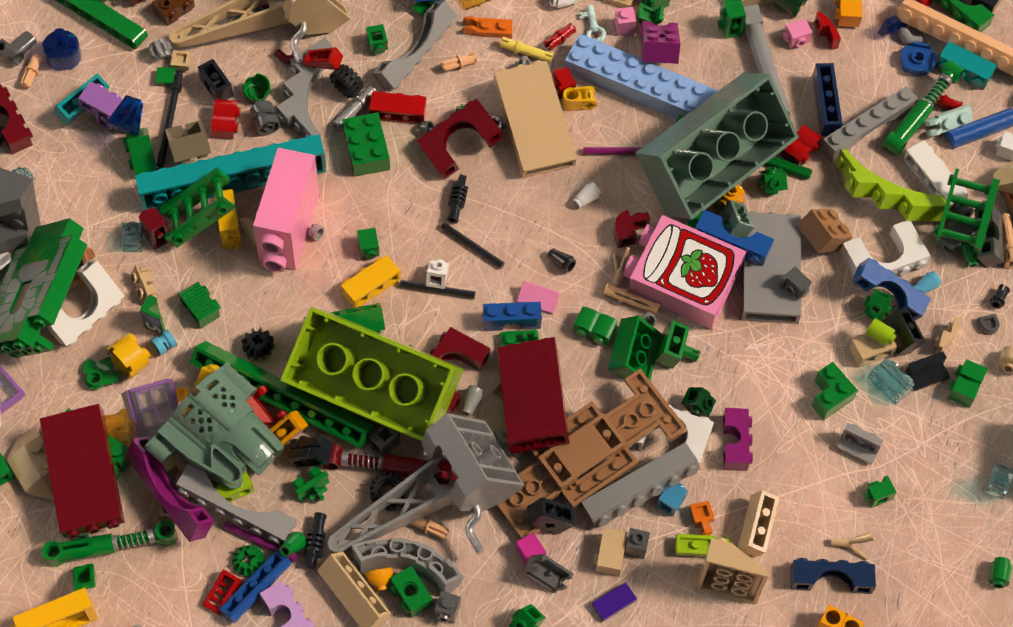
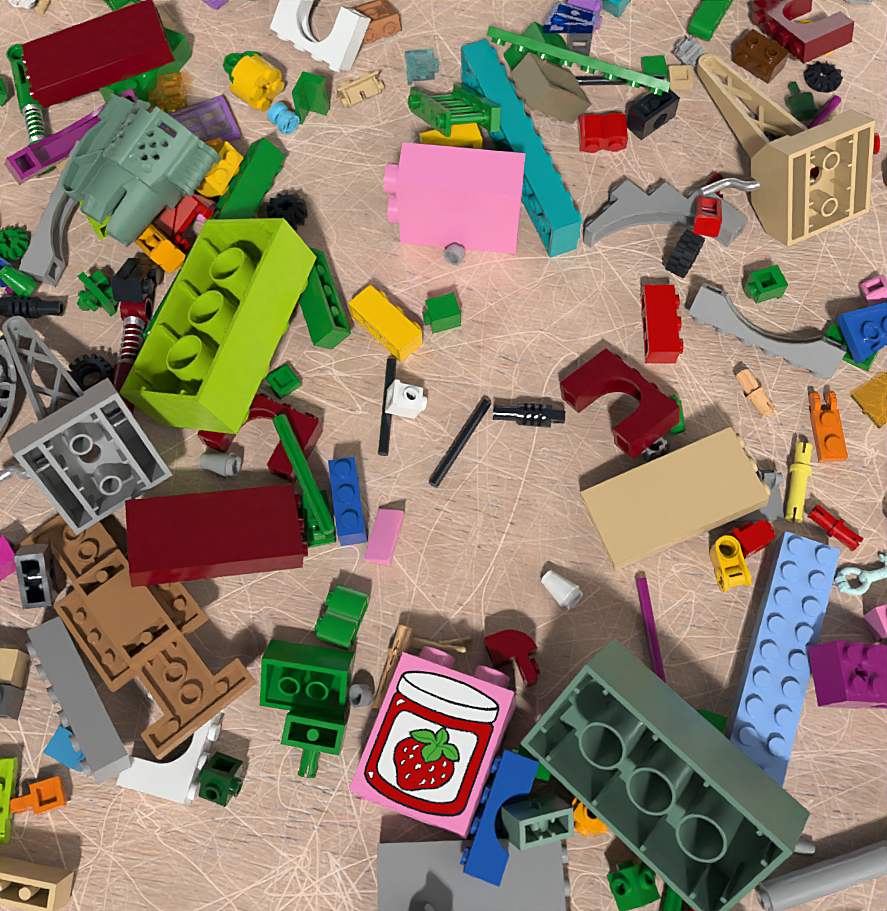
camera: 90 degrees right, 5 degrees up
(153, 227) = (430, 74): dark red brick -> none
(169, 119) = (568, 58): none -> plate
(199, 304) = (336, 145): green brick -> none
(257, 88) = (653, 159): green hair -> none
(265, 117) = (609, 173): dark grey wheel -> none
(358, 103) = (649, 272): light grey pin -> none
(366, 144) = (593, 291): green brick -> none
(425, 127) = (642, 362): dark grey hinge -> none
(492, 336) = (304, 474): none -> green axle
(562, 260) = (446, 563): black cone -> none
(737, 422) = (138, 846): magenta arch -> none

